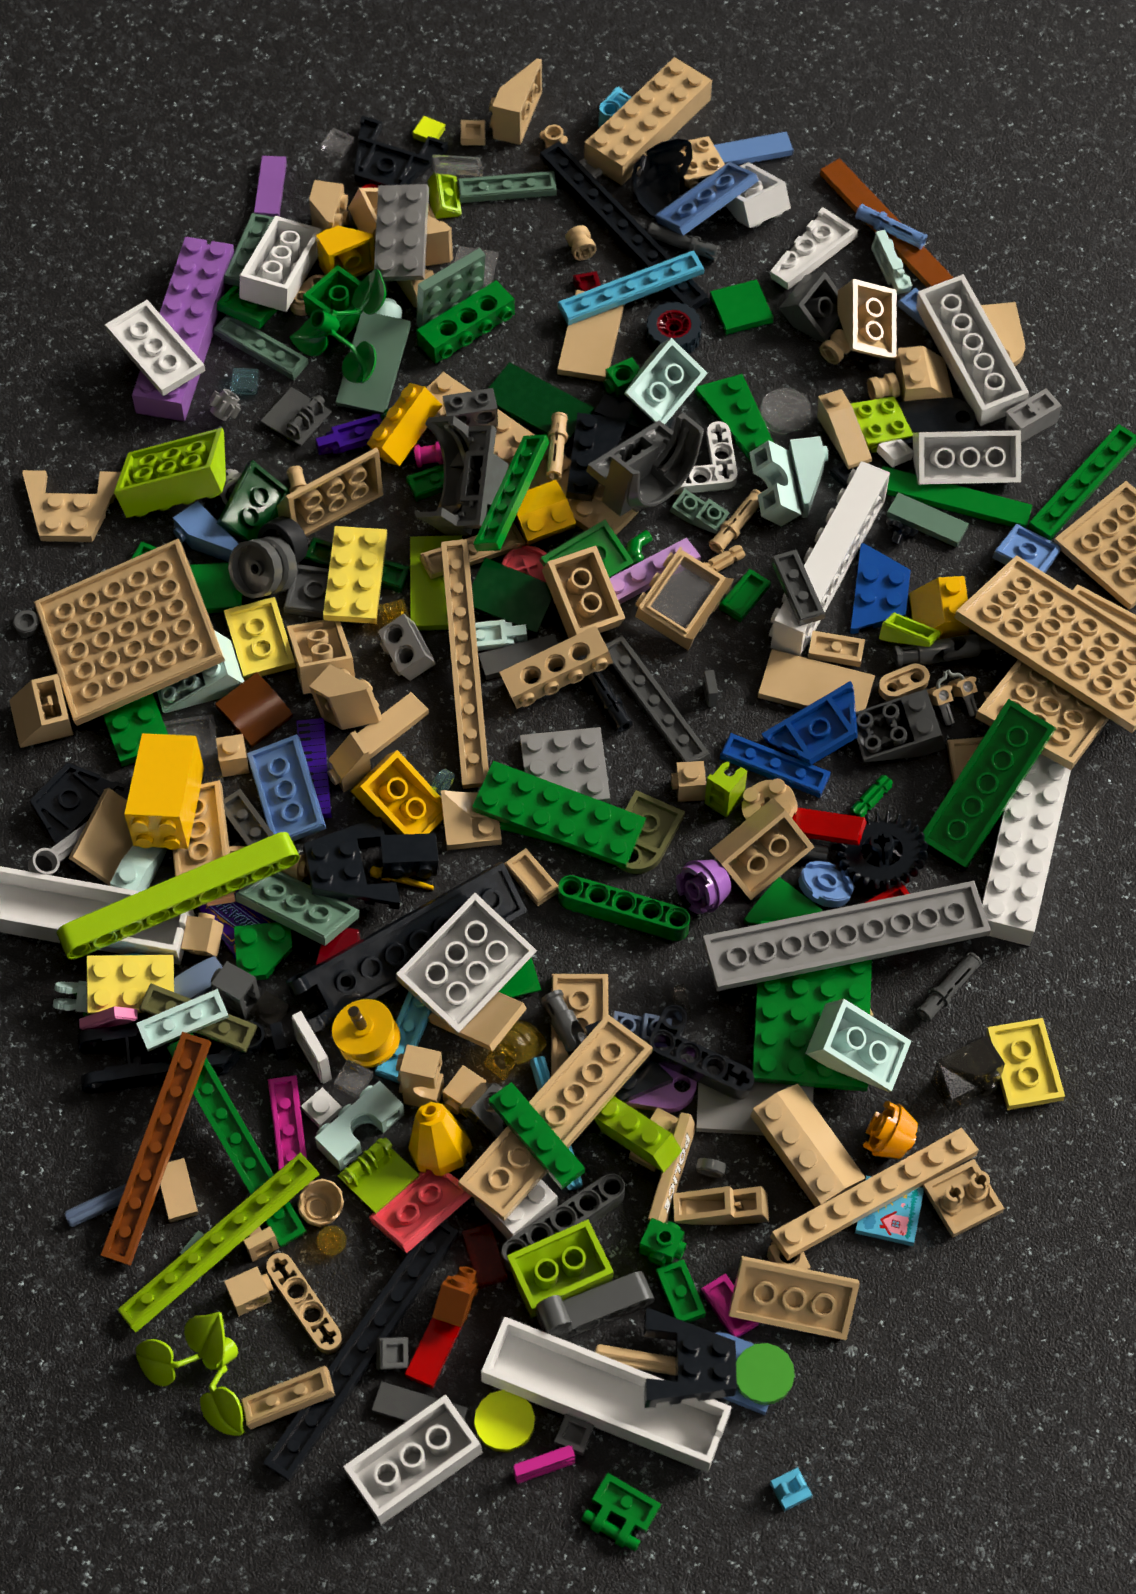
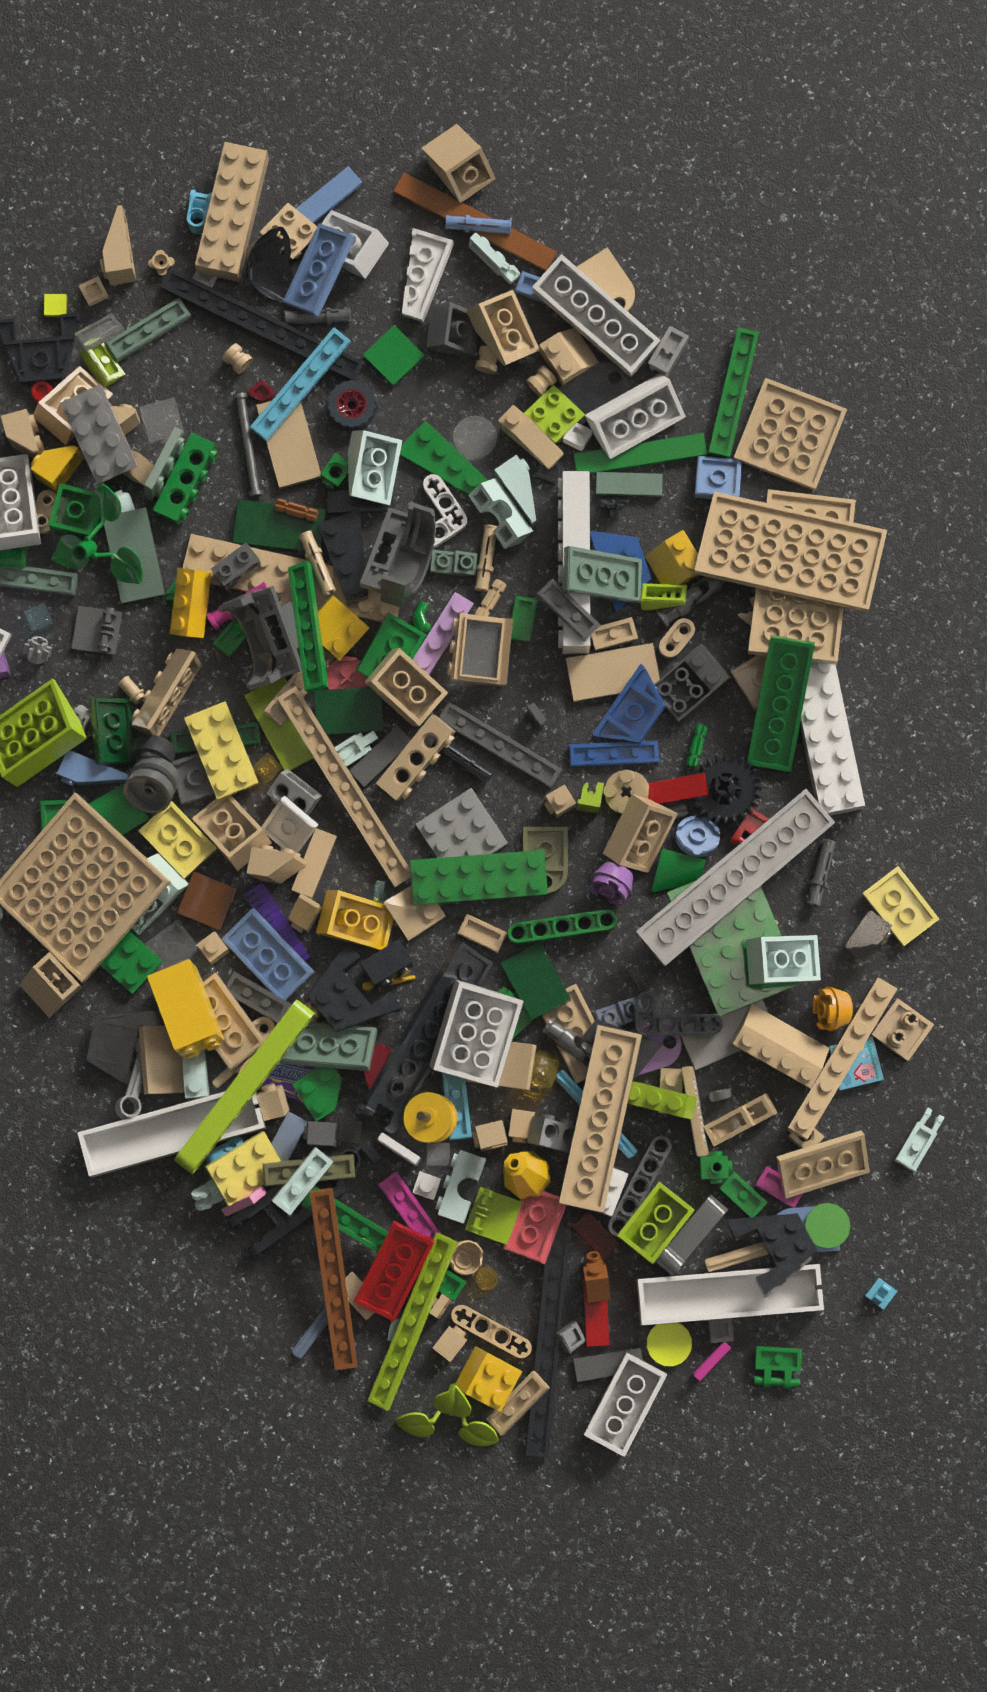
camera: 25 degrees left, 20 degrees up
(229, 1172) = (394, 1271): none -> red plate
(268, 1347) = (488, 1379): none -> yellow brick
(348, 435) = (150, 627): dark purple hinge -> none
(385, 671) = (289, 825): none -> white tile
(530, 364) = (248, 446): none -> flat silver bar
(536, 1135) = (596, 1143): green plate -> none
(562, 393) = (296, 510): none -> dark orange axle
(563, 950) = (535, 981): none -> dark green tile
(852, 573) = (602, 574): none -> sand green tile
(900, 169) = (459, 162): none -> tan slope
(922, 1333) = (918, 1142): none -> light aqua hinge
(961, 687) = (709, 637): piece -> none

